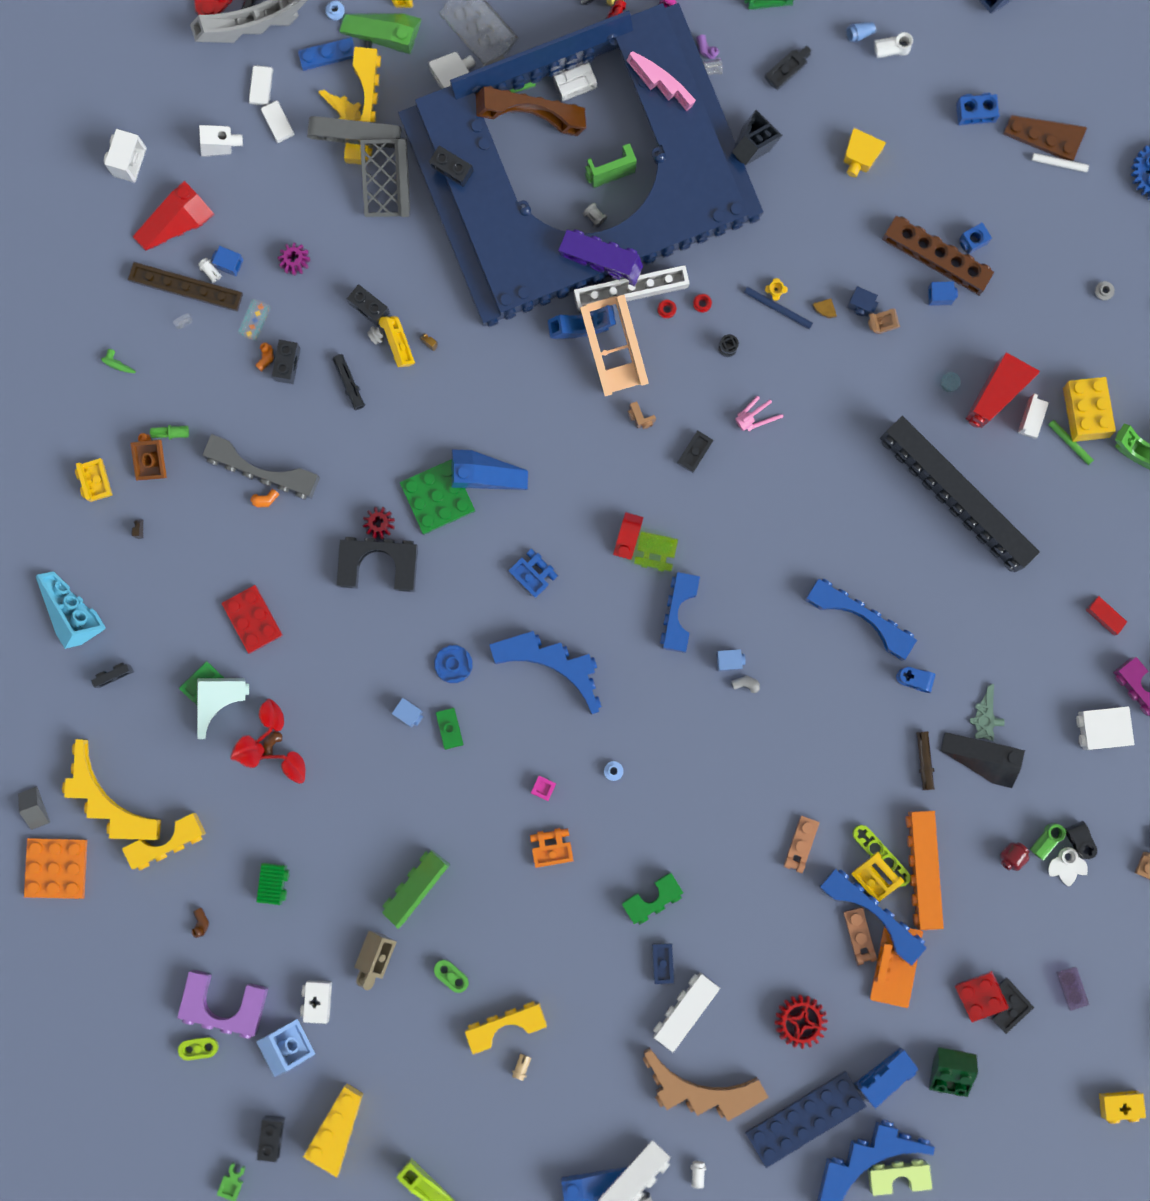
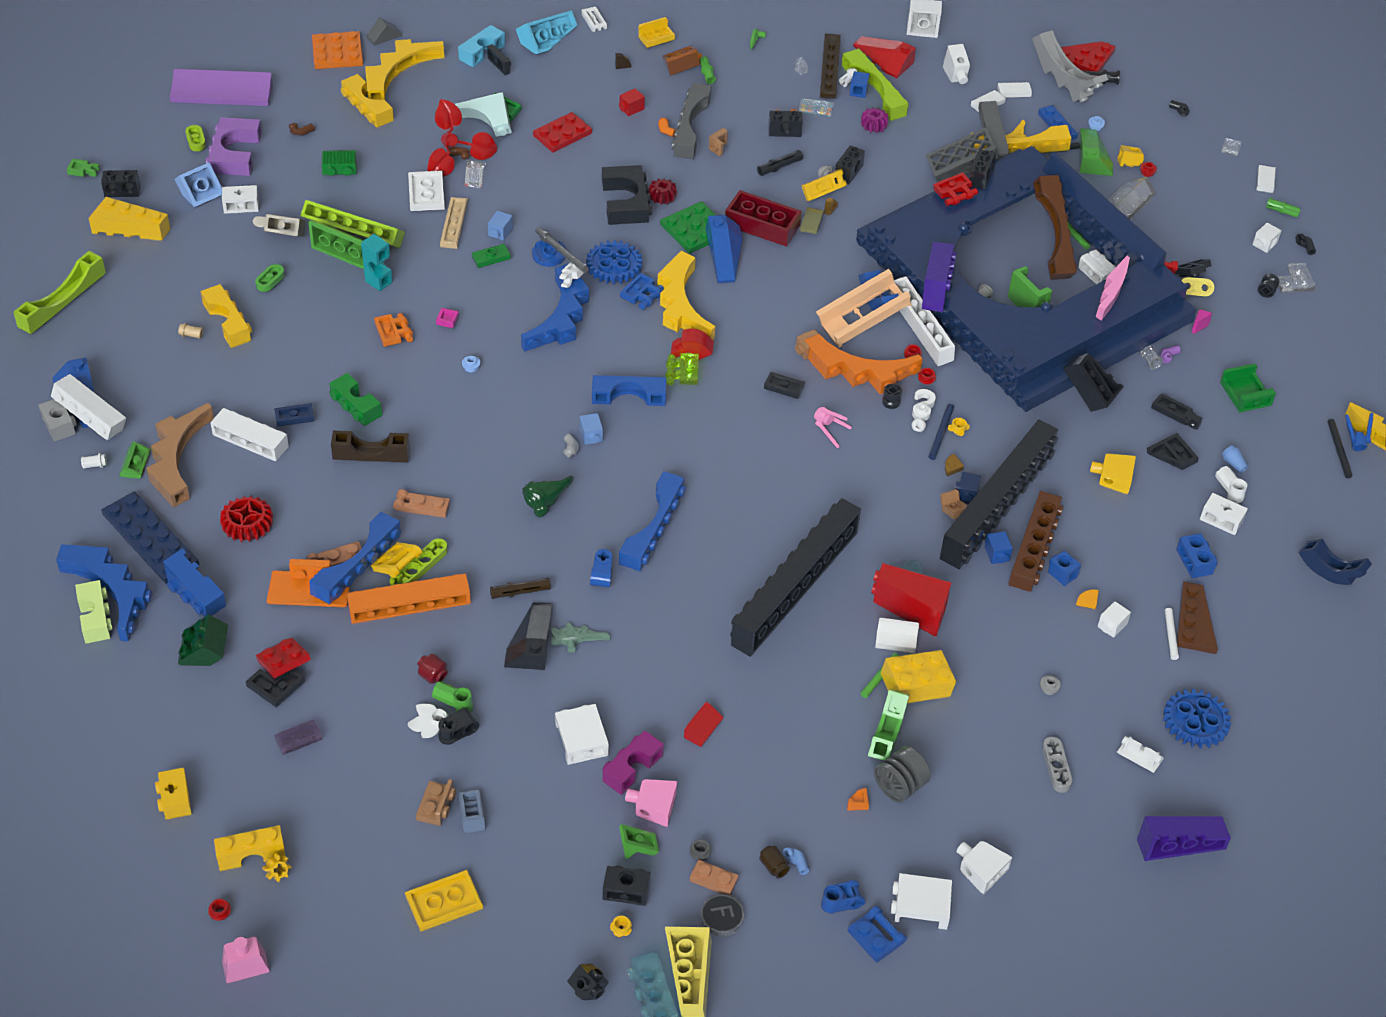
camera: 80 degrees right, 35 degrees down
(62, 546) = (590, 17): none -> white tile
(70, 681) = (472, 50): none -> medium azure arch
(110, 1014) = (221, 87): none -> medium lavender arch
(217, 531) = (631, 102): none -> red brick
(266, 231) = (893, 102): none -> lime arch
(298, 444) = (717, 141): none -> medium nougat bracket
(309, 728) = (475, 173): none -> clear slope
(333, 788) = (426, 190): none -> white plate
(384, 878) = (351, 223): none -> lime brick
(388, 763) = (454, 222): none -> tan tile
(439, 664) = (546, 237): none -> flat silver bar
(445, 421) = (764, 217): none -> dark red brick
(450, 367) = (811, 220): none -> olive slope
(465, 858) = (375, 271): none -> teal arch
(466, 204) = (954, 185): none -> red plate
(467, 593) = (614, 262): none -> blue gear
(512, 644) = (568, 273): none -> white plate
(577, 538) = (673, 298): none -> yellow arch
(697, 349) = (858, 370): none -> orange arch
(700, 1132) = (134, 461): none -> bright green slope
(726, 889) = (349, 447): none -> dark brown arch
(752, 321) = (922, 410): none -> white piece
(811, 717) = (544, 494): none -> dark green hair
(842, 87) = (1174, 452): none -> black wing
(883, 273) = (998, 494): none -> black brick
(938, 61) = (1223, 514): none -> white brick
(1010, 226) = (1088, 599): none -> light orange tile
(1042, 211) = (1114, 619): none -> white brick

